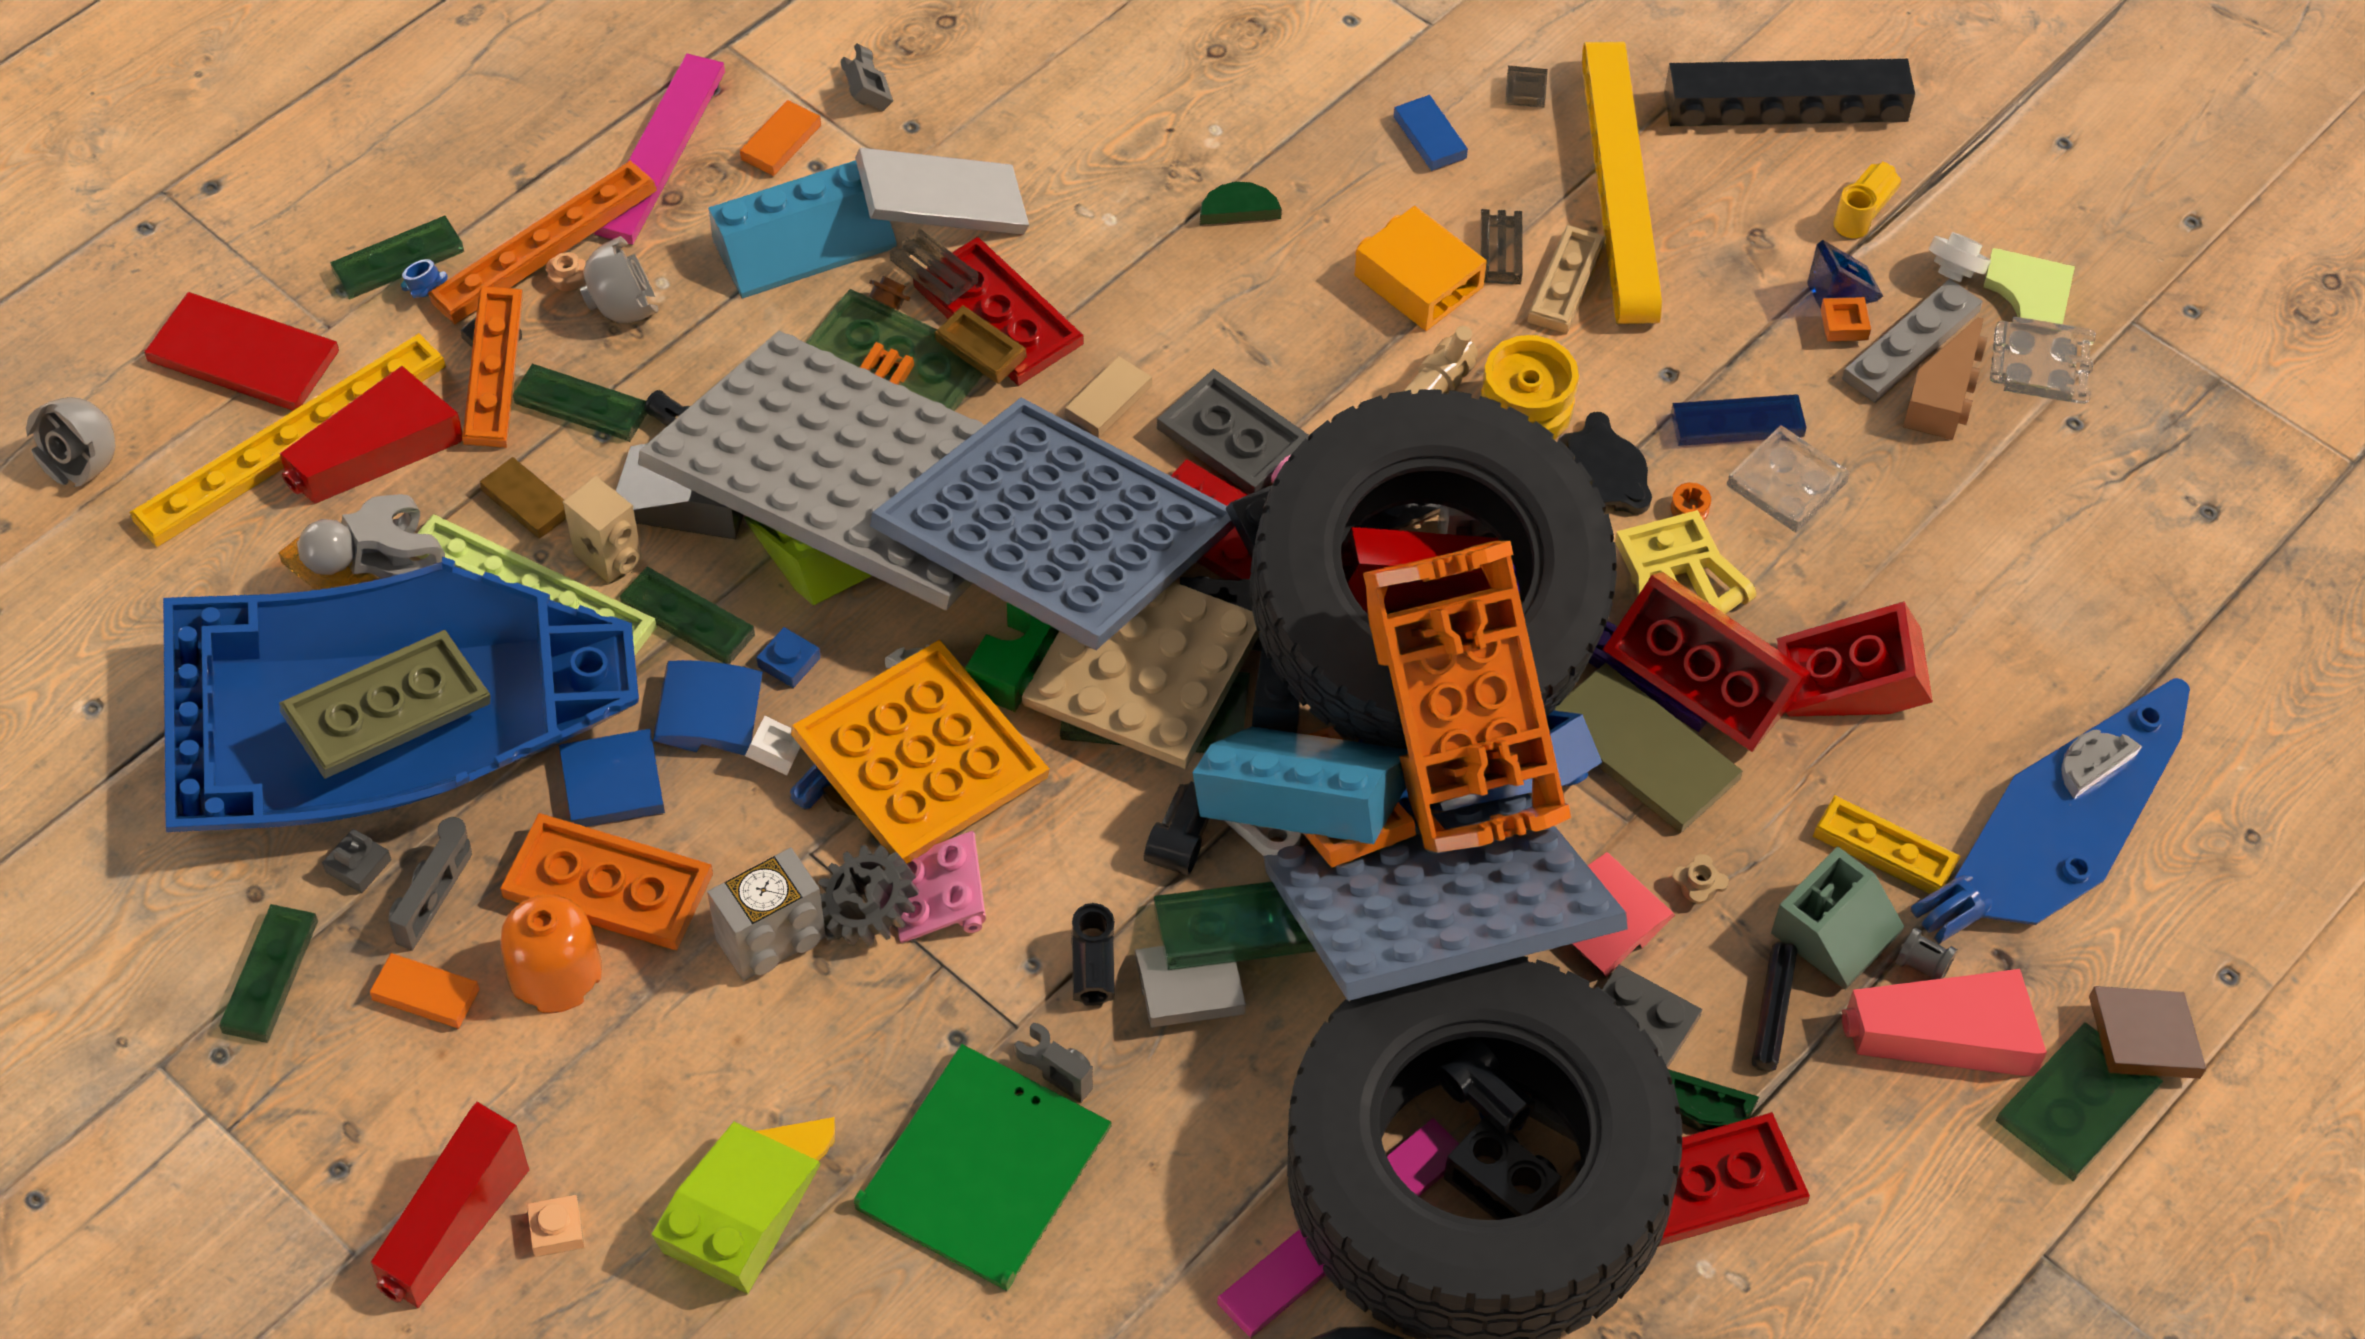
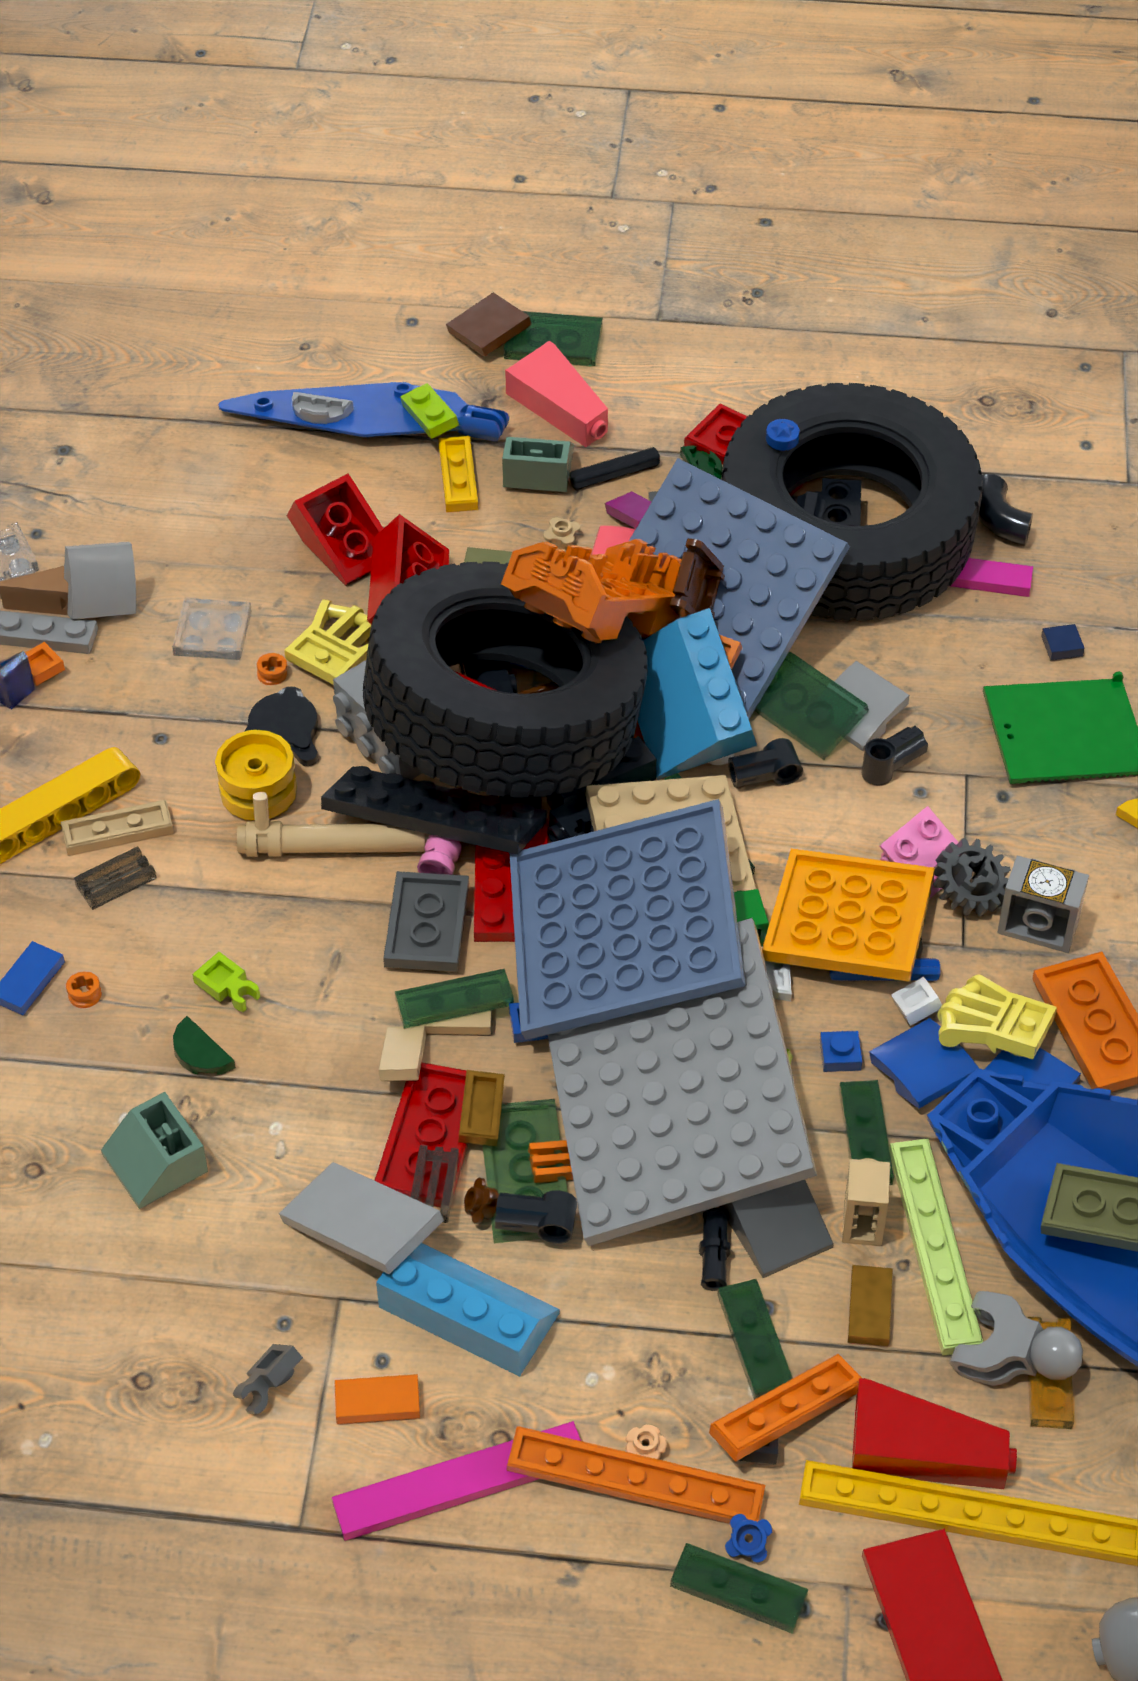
camera: 125 degrees left, 5 degrees down
(617, 284) = (639, 1377): light grey cylinder -> none
(660, 792) = (994, 1018): none -> light yellow plate
(823, 317) = (547, 1216): none -> black piece
(1060, 1066) = (975, 722): dark grey plate -> none
(1092, 323) = (402, 1053): none -> tan tile
(1111, 1269) = (1062, 642): none -> dark blue tile
(1118, 388) = (454, 998): none -> clear green tile
(1144, 117) = (154, 1151): none -> sand green slope
(1299, 252) = (225, 978): none -> lime plate
(1381, 152) = (83, 999): none -> orange bush
(1416, 812) = (696, 580): none -> reddish brown container
(1419, 267) = (182, 901): light orange brick -> none
(1597, 1072) = (782, 434): none -> blue tile
(1670, 963) = (628, 508): none -> magenta tile
(1736, 419) = (177, 679): clear blue tile -> none
(1914, 392) = (100, 580): none -> light grey slope
(1926, 955) = (530, 414): dark grey bush -> none
(2003, 854) = (429, 410): none -> lime plate

